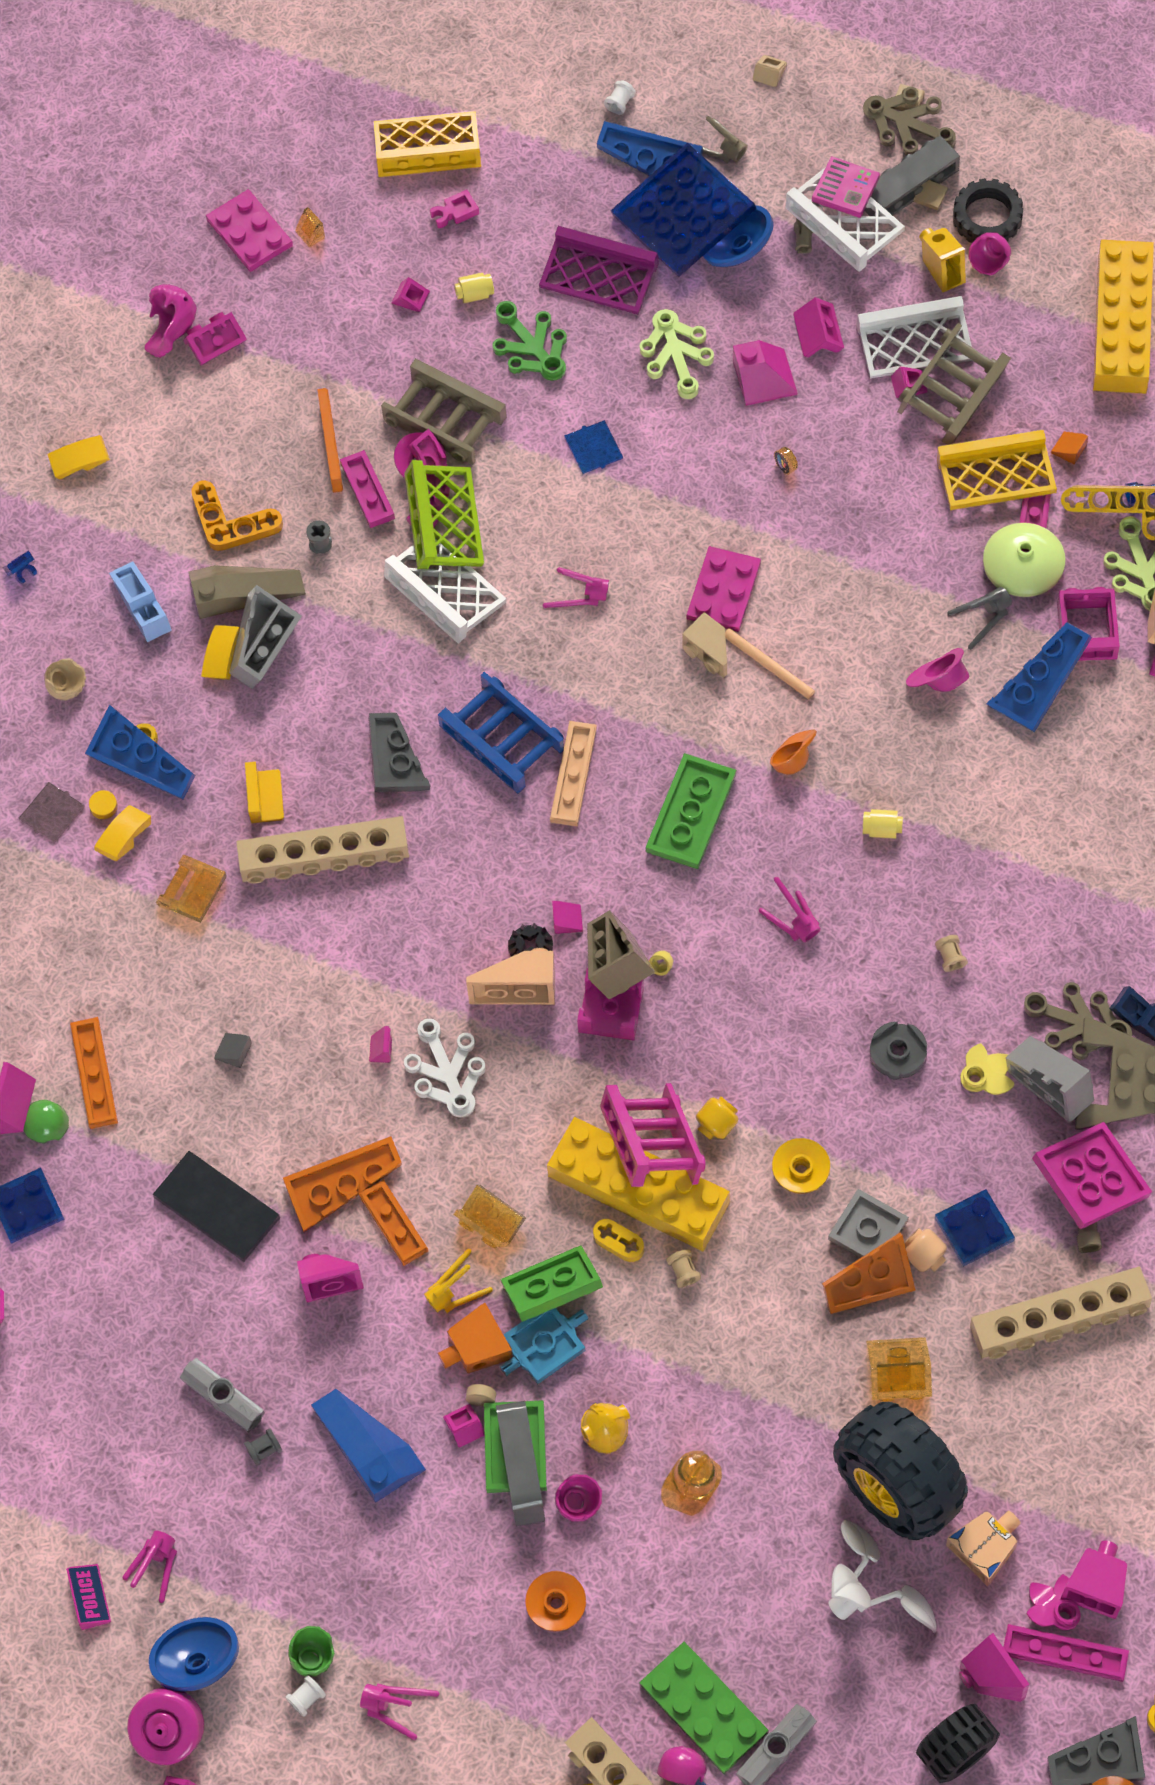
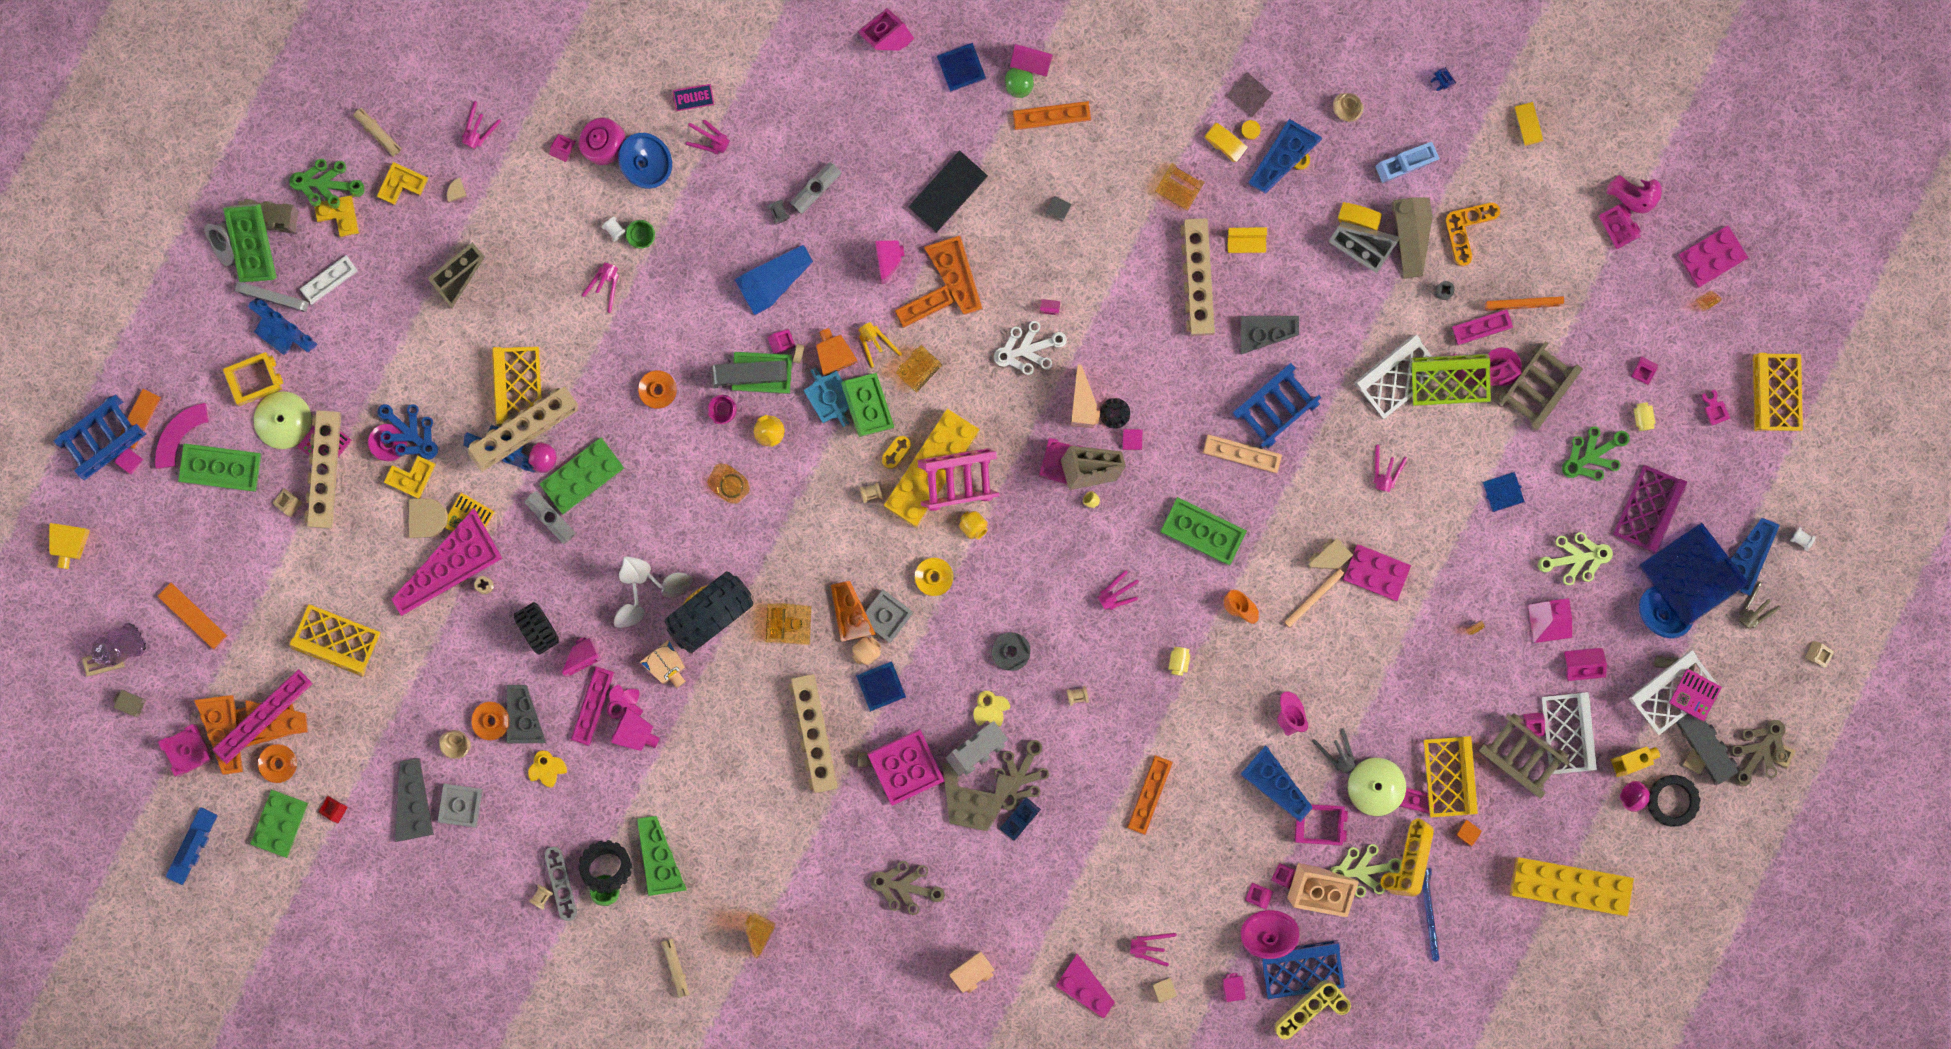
camera: 90 degrees right, 20 degrees up
(1079, 847) = (1150, 794): none -> orange tile

